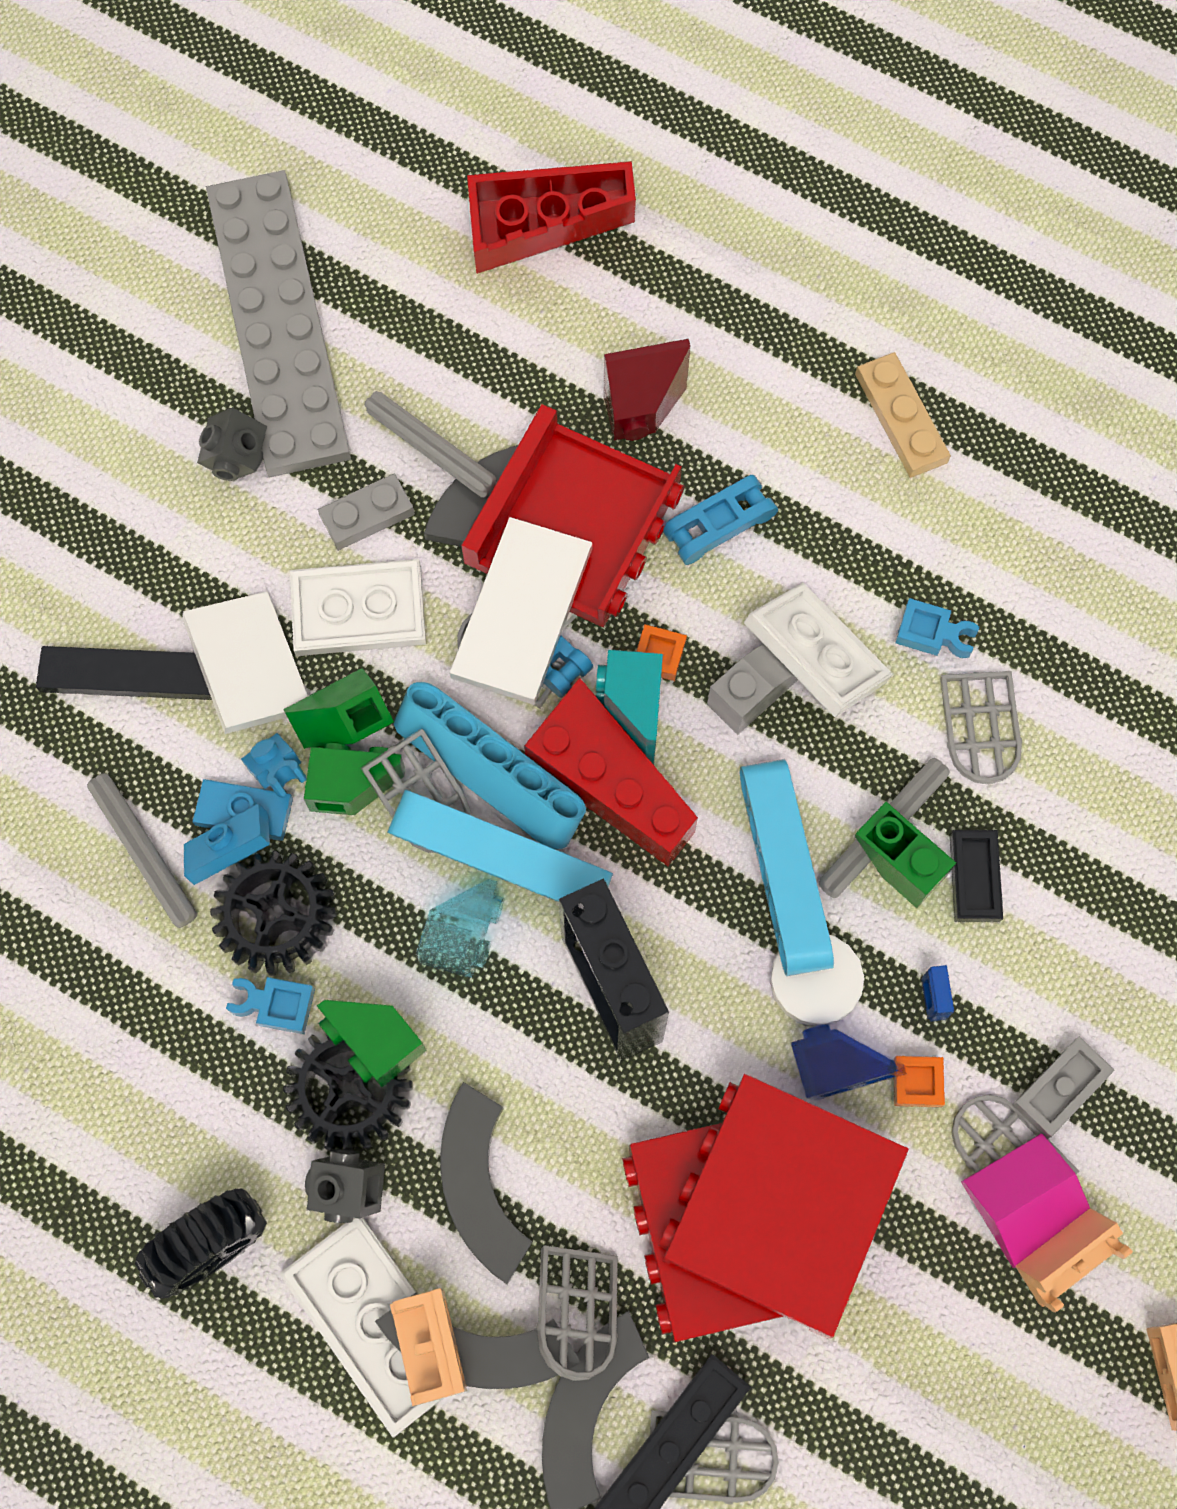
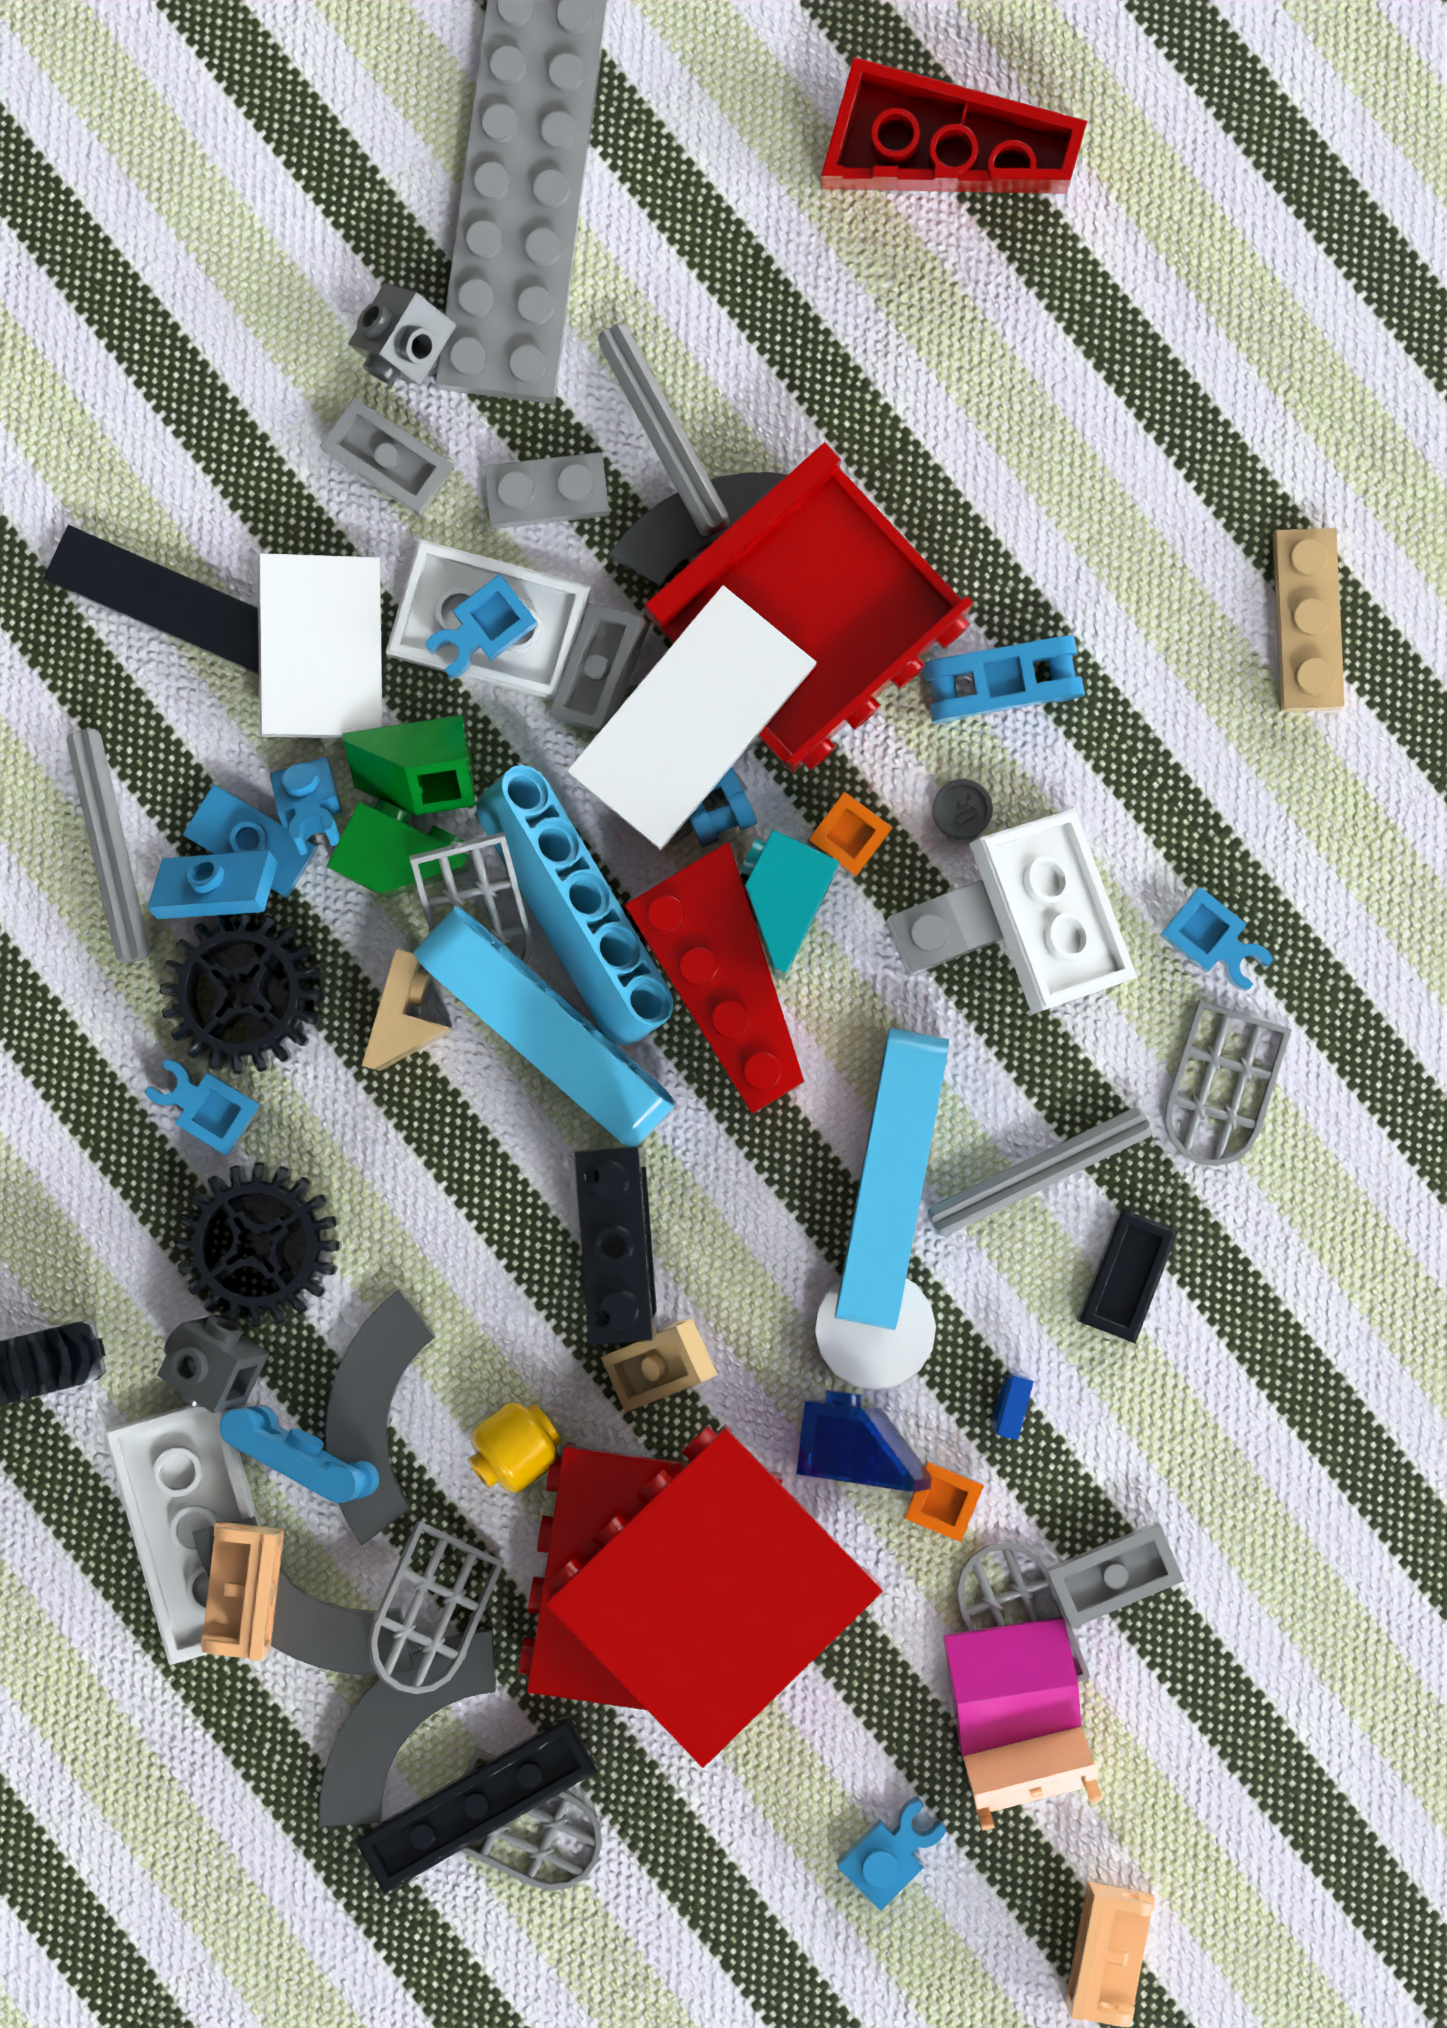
camera: 25 degrees right, 15 degrees up
(249, 526) = (387, 457): none -> light grey plate
(357, 600) = (490, 622): none -> dark azure plate
(375, 1035) = (306, 1207): green slope -> none
(396, 897) = (394, 1031): none -> tan slope
(434, 1229) = (297, 1455): none -> dark azure plate
(444, 606) = (599, 667): none -> light grey plate
(458, 929) = (458, 1102): clear light blue slope -> none
(592, 1163) = (513, 1447): none -> yellow head
(644, 386) = (972, 463): dark red slope -> none
(675, 1060) = (660, 1366): none -> tan slope
(727, 612) = (962, 809): none -> dark grey piece
(903, 854) = (1044, 1220): green slope -> none
(989, 1370) = (885, 1859): none -> dark azure plate

